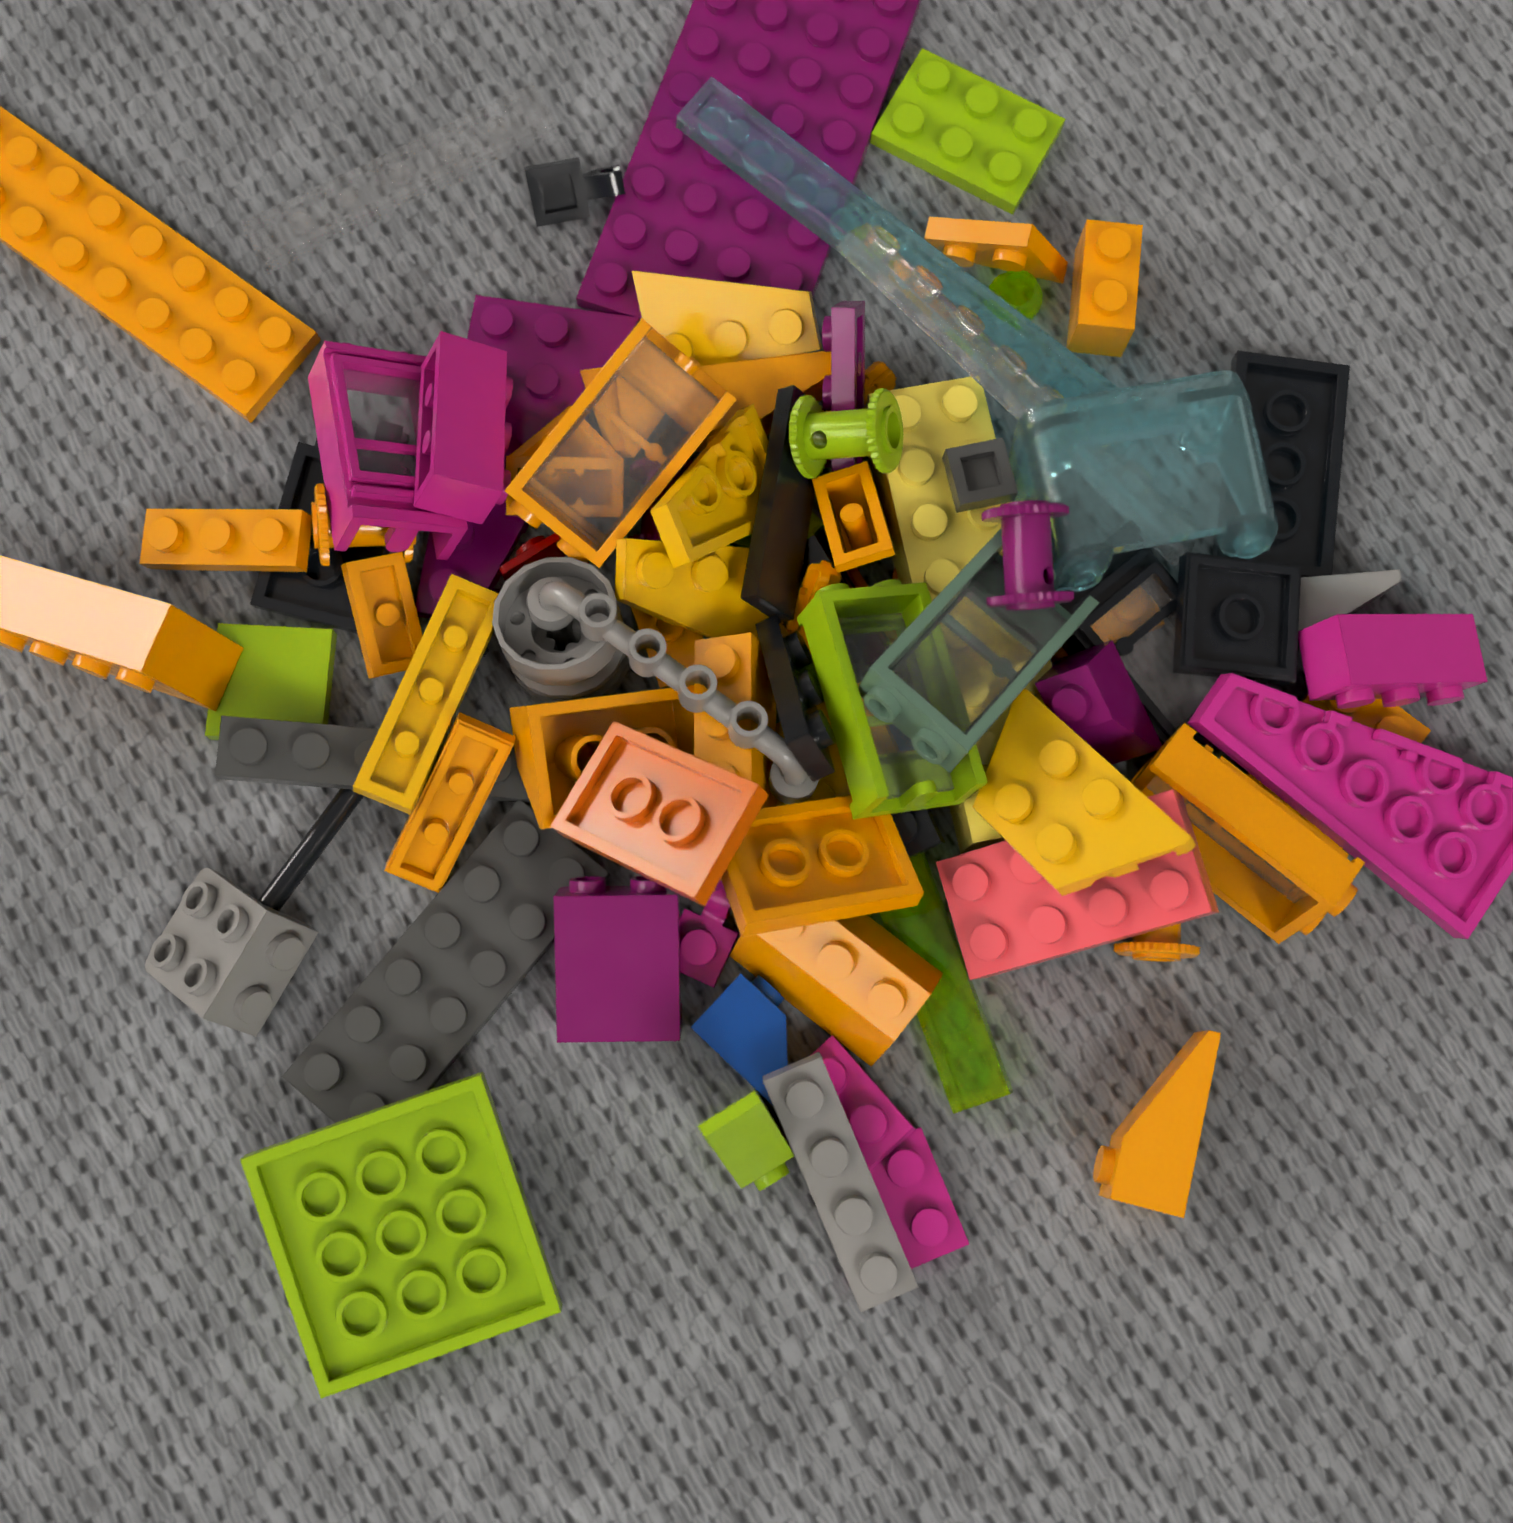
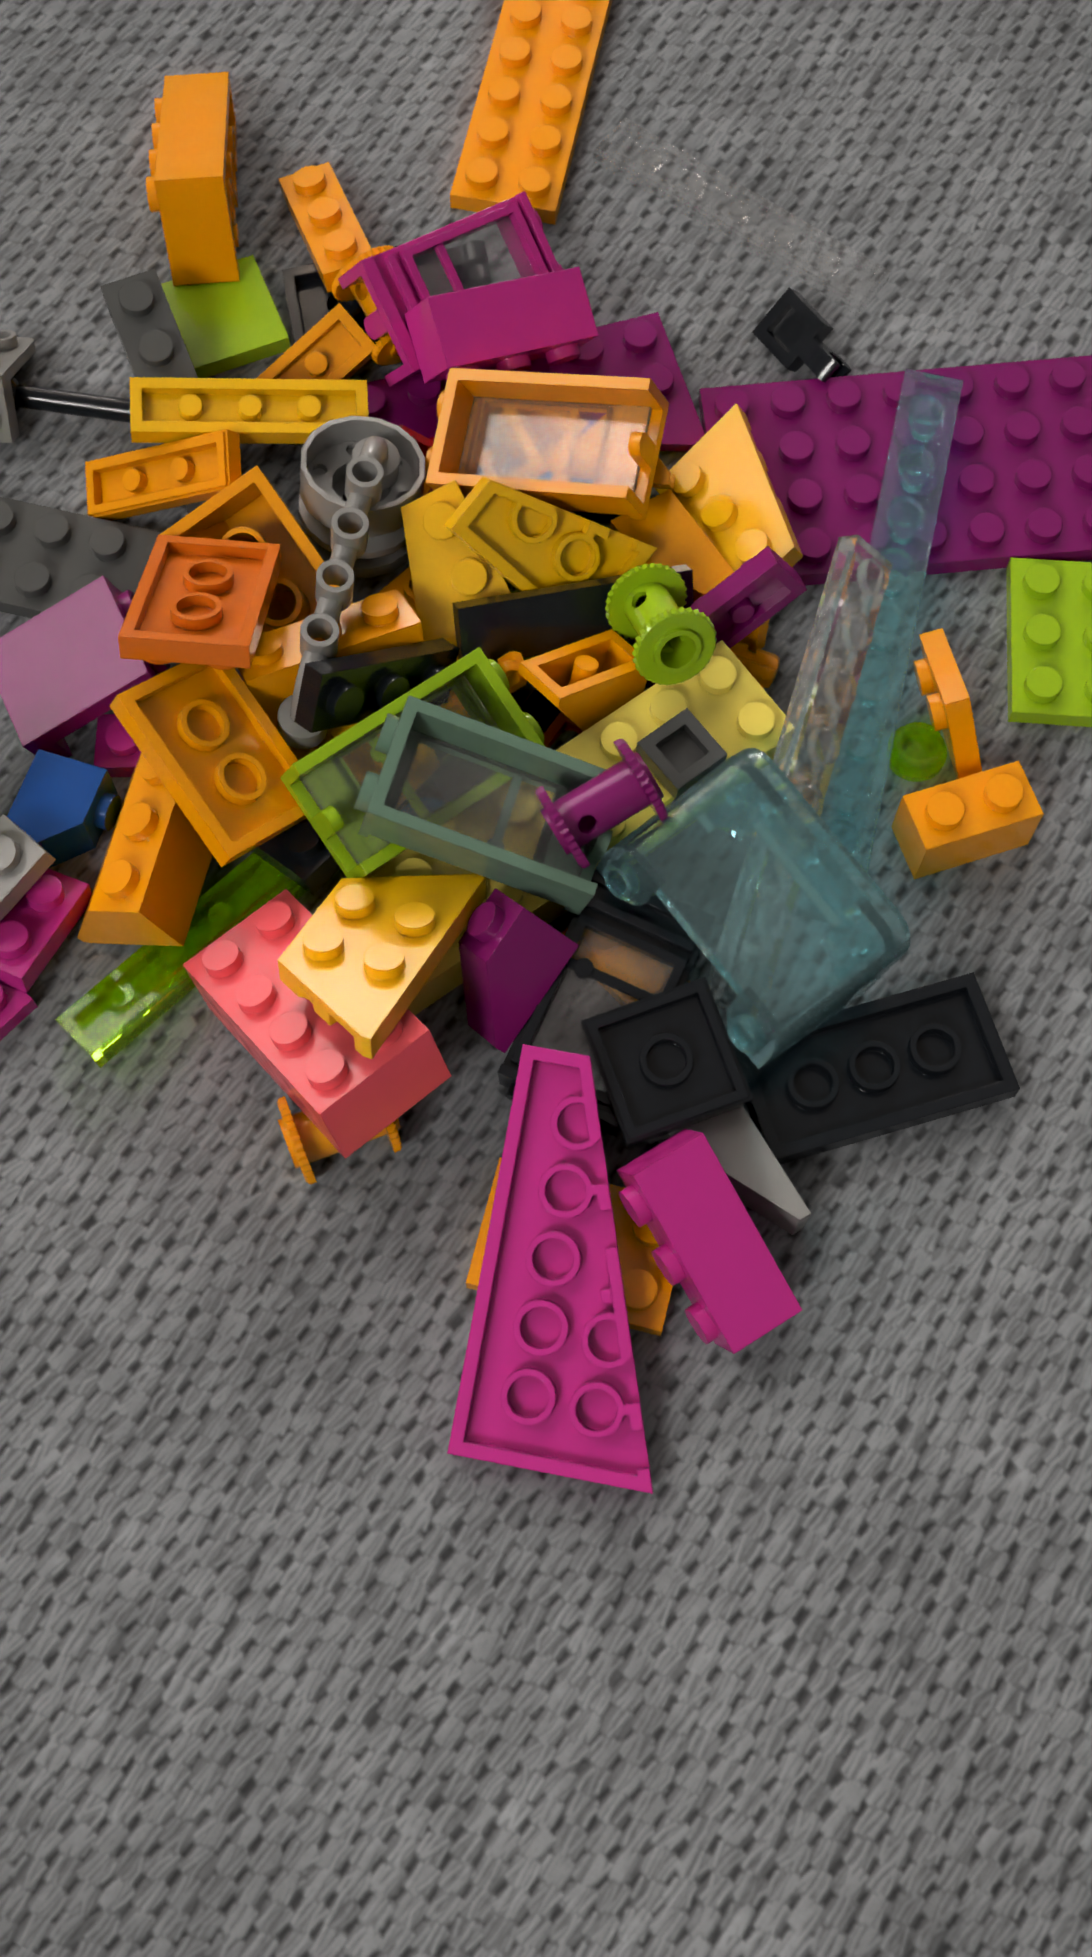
camera: 65 degrees right, 10 degrees down
(1158, 1141) = (98, 1219): light orange slope -> none
(1251, 843) = (439, 1159): light orange door -> none

